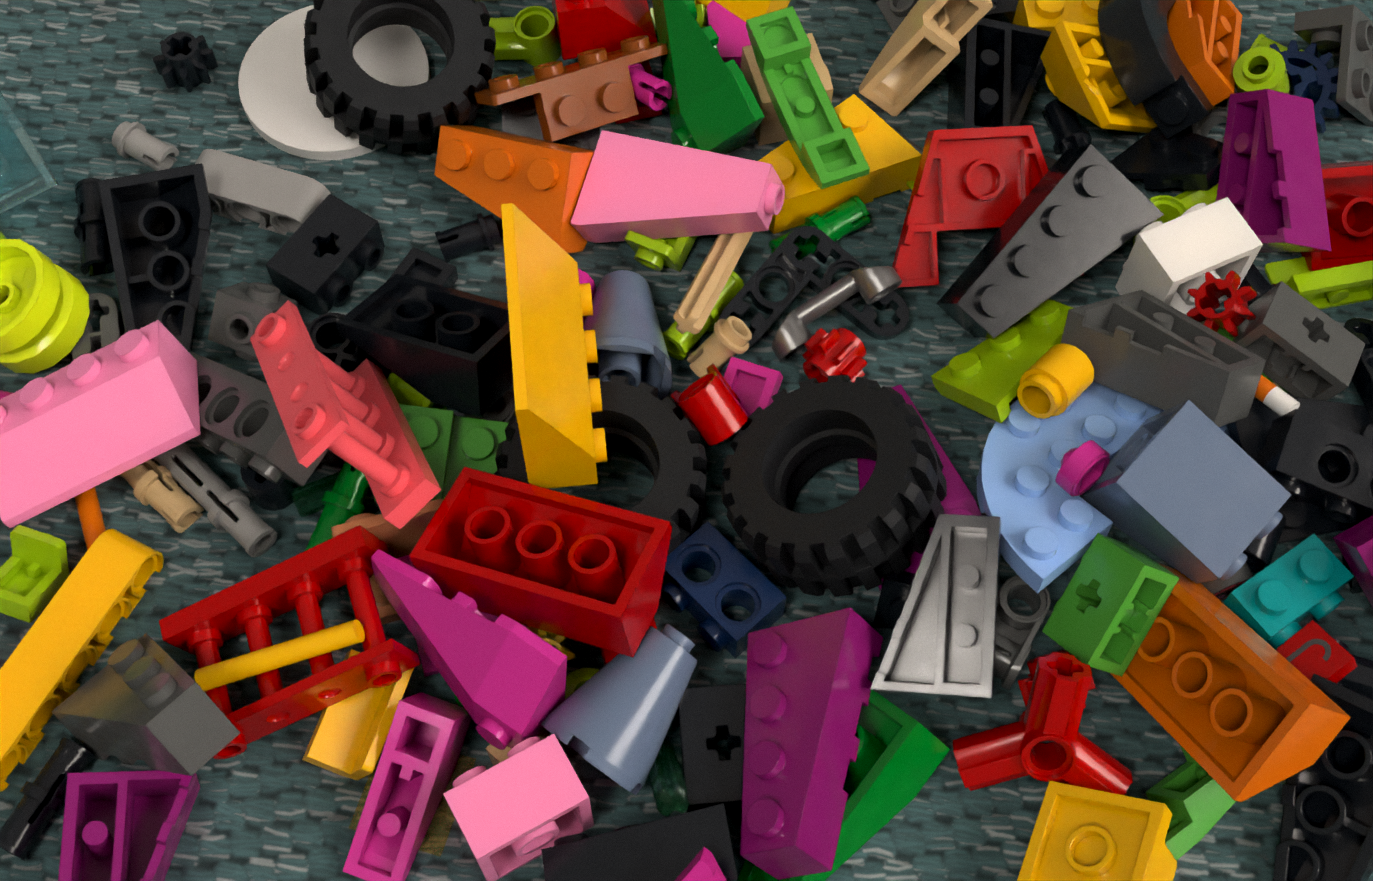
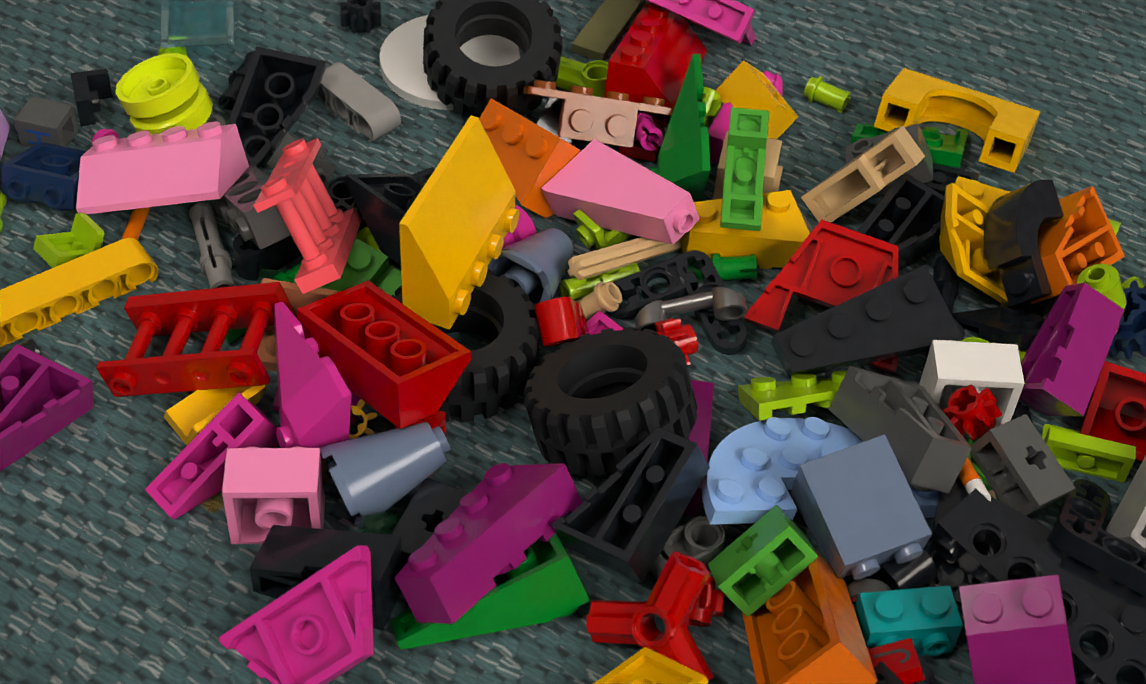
camera: 25 degrees right, 15 degrees down
(134, 141) = (300, 44): light grey pin -> none
(146, 712) = (83, 335): dark grey wedge -> none
(158, 488) = (181, 234): tan pin -> none
(280, 655) = (184, 338): yellow bar -> none
(327, 256) = (375, 148): black brick -> none
(732, 583) = (495, 434): dark blue brick -> none
(1055, 381) = (813, 408): yellow brick -> none
(1082, 468) = (787, 459): dark pink tile -> none

